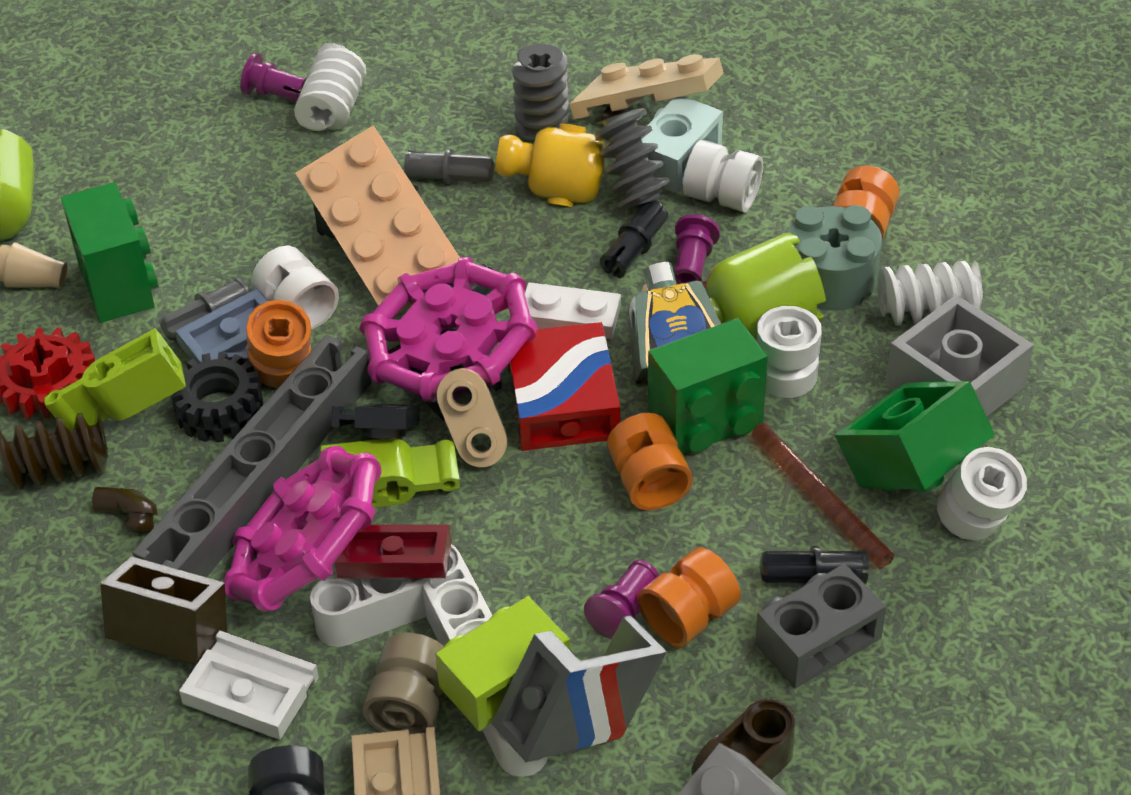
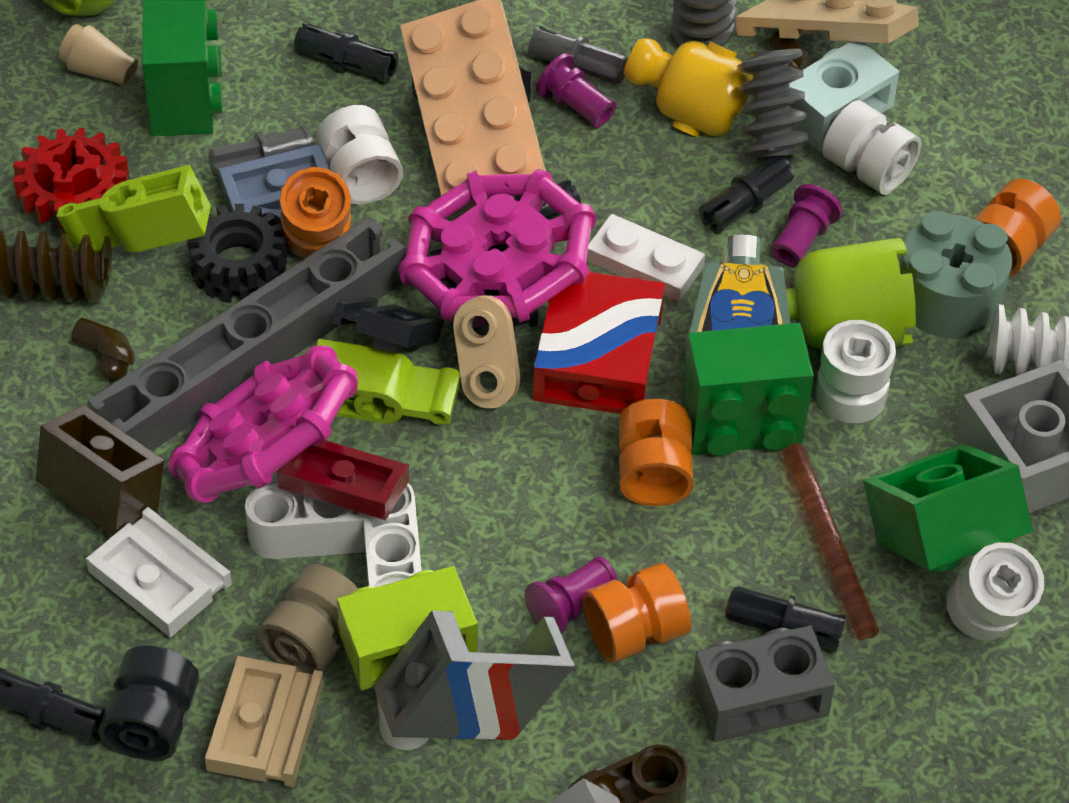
camera: 15 degrees right, 5 degrees up
(248, 212) = (346, 52): none -> black pin
(457, 194) = (572, 89): none -> magenta pin

